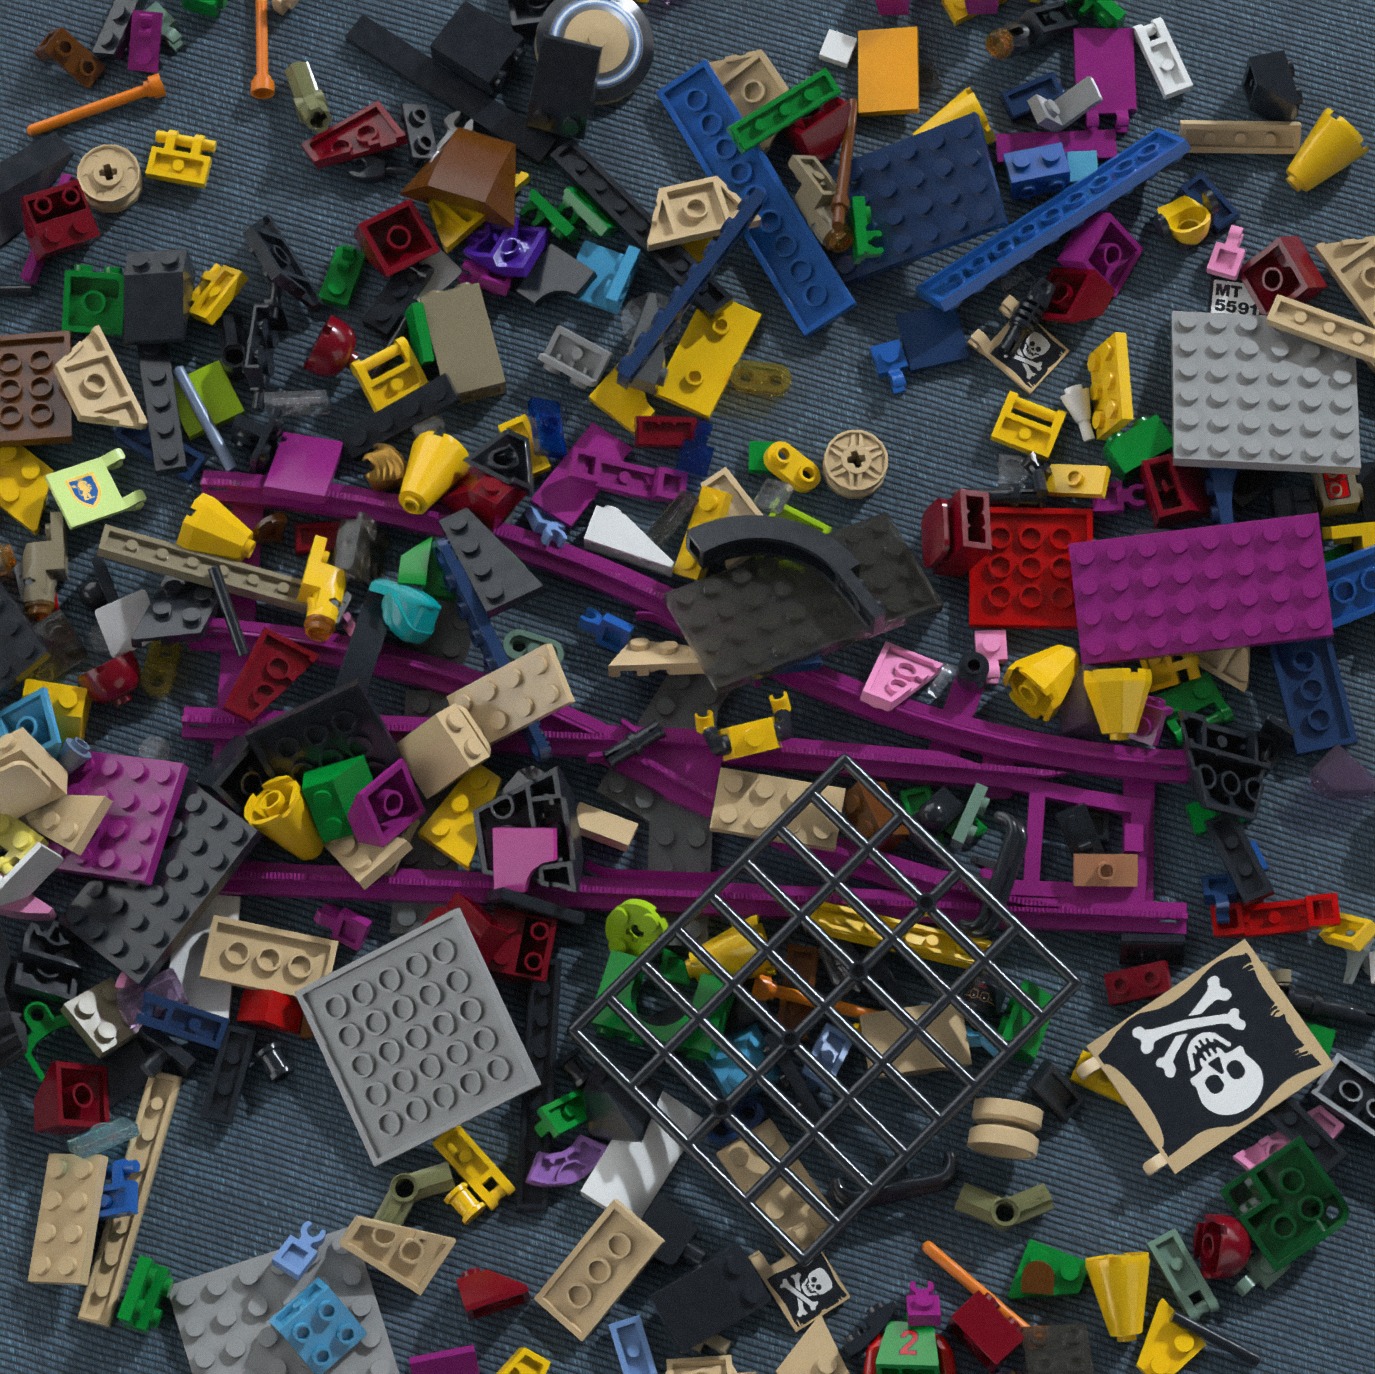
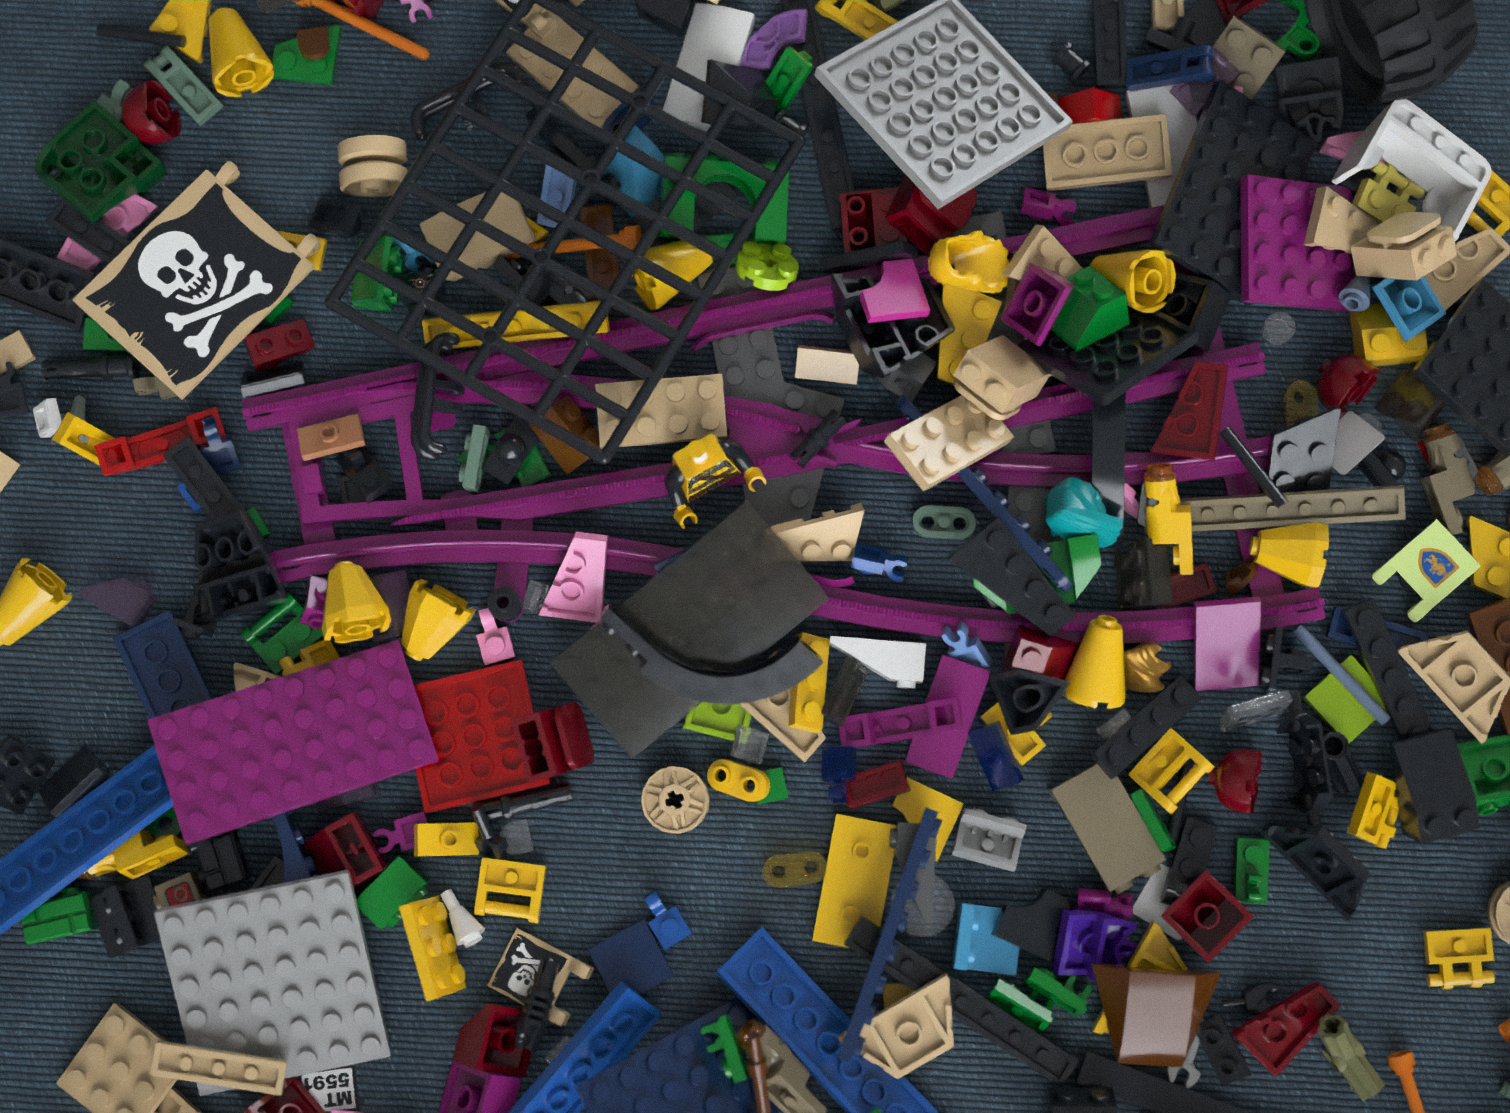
camera: 170 degrees right, 10 degrees up
(433, 866) = (975, 260): none -> yellow piece
(1023, 1205) = (377, 100): olive piece -> none

